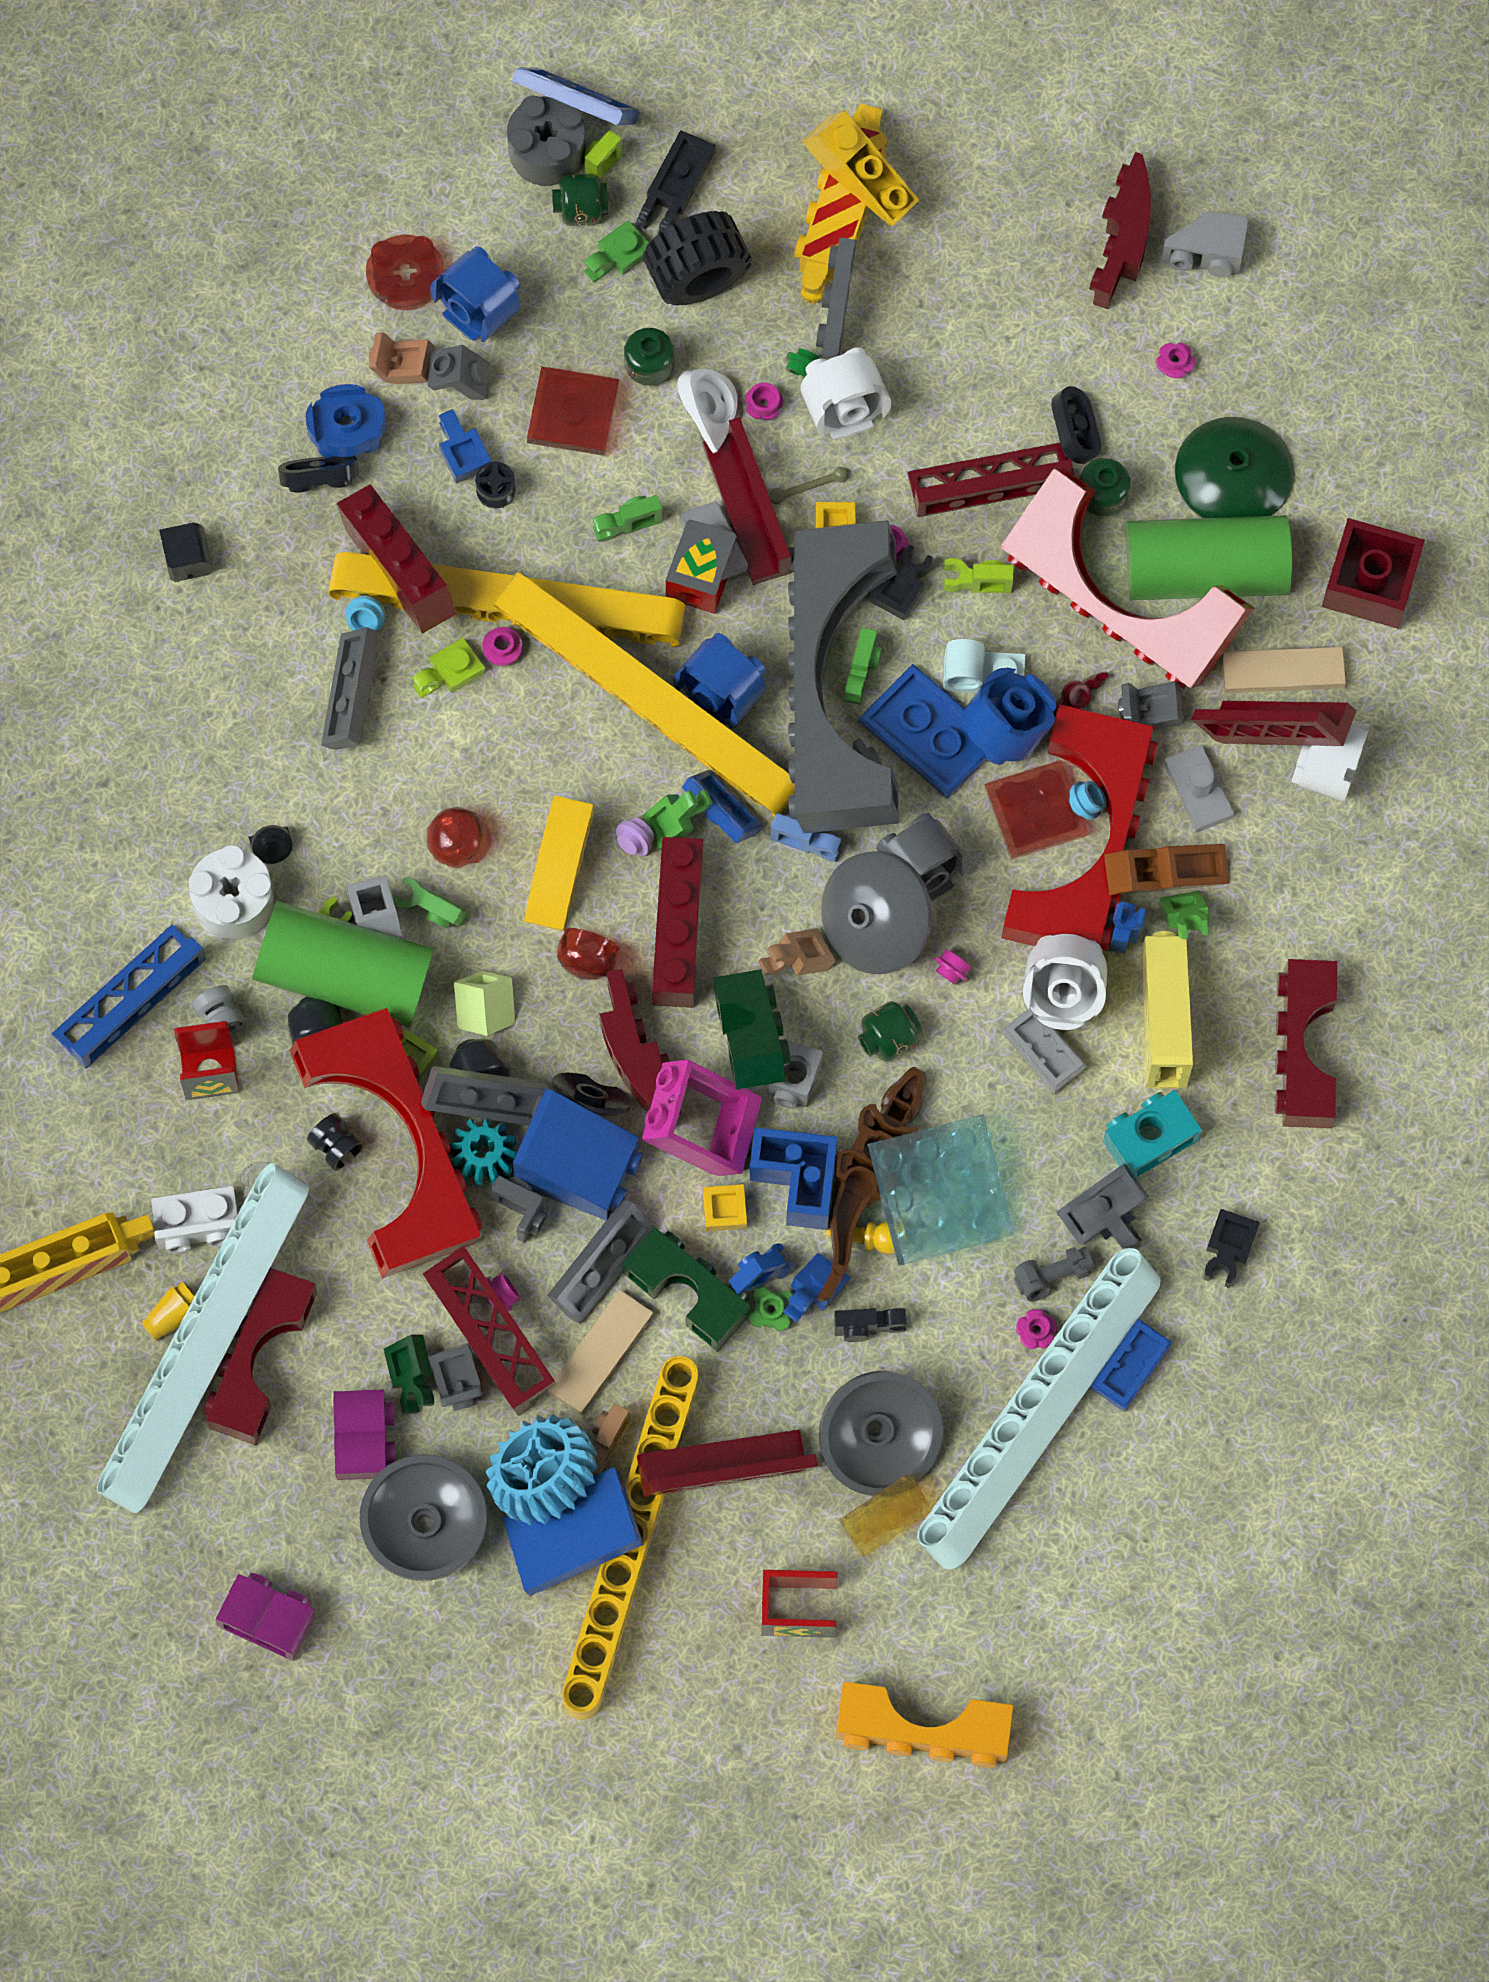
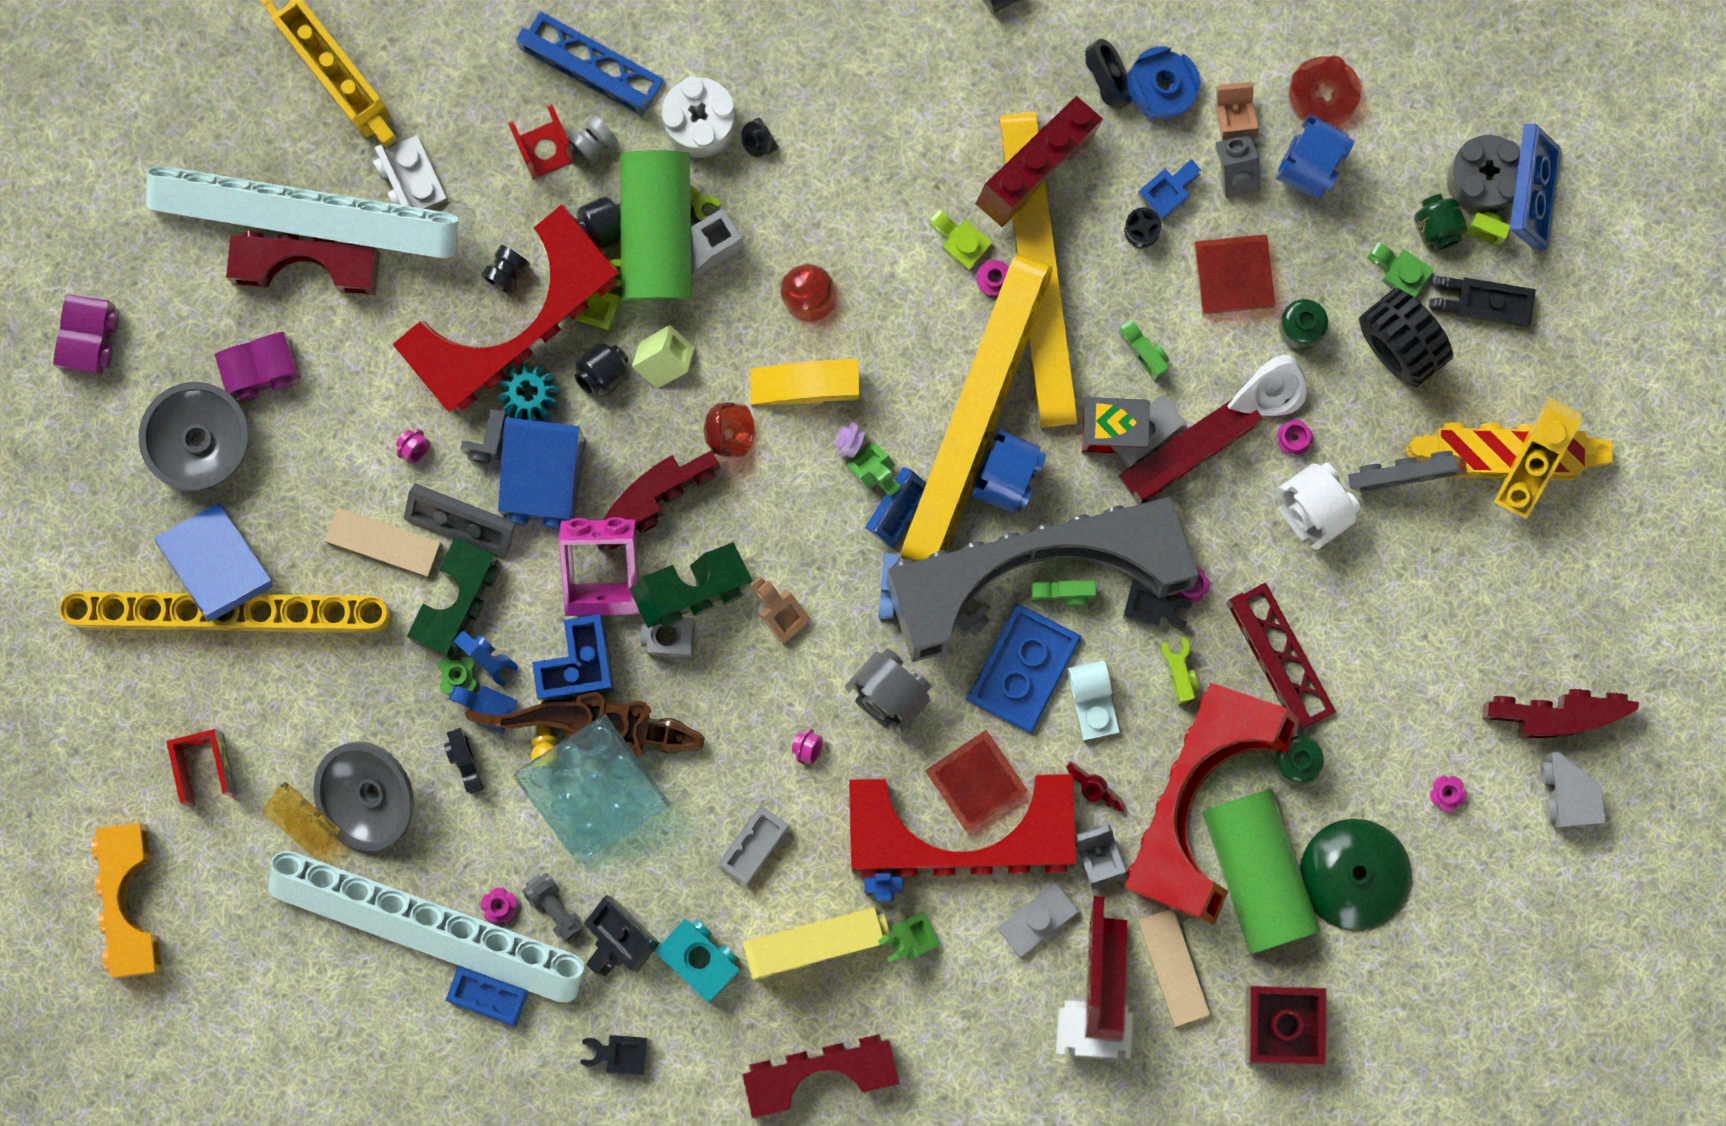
camera: 80 degrees right, 10 degrees up
(169, 1311) = (324, 179): yellow cone -> none
(350, 688) = (916, 161): dark grey plate -> none
(365, 612) = (987, 153): medium azure plate -> none
(407, 1369) = (324, 389): dark green plate -> none
(440, 909) = (738, 292): bright green plate -> none
(456, 1376) = (326, 429): dark grey bracket -> none
(482, 1095) = (568, 377): dark grey plate -> none
(483, 1347) = (365, 437): dark red fence -> none
(550, 1476) = (257, 521): medium azure gear -> none
(590, 1094) = (600, 468): black dish -> none
(608, 1431) = (313, 568): medium nougat plate -> none
(677, 922) = (777, 496): dark red arch -> none
(723, 1463) = (301, 672): dark red fence -> none
(724, 1207) = (535, 610): yellow plate -> none
(778, 495) = (1209, 474): olive hinge -> none
(799, 361) = (1341, 460): green plate -> none
(834, 514) = (1198, 530): yellow plate -> none
(889, 1031) = (732, 707): dark green head -> none
(894, 909) = (830, 666): dark grey dish -> none
(1009, 715) = (1048, 733): blue brick -> none
(1065, 980) = (812, 847): white brick -> none
(1076, 425) = (1353, 721): black plate -> none
(1087, 799) = (993, 823): medium azure plate -> none
(1166, 868) = (945, 910): dark orange slope -> none

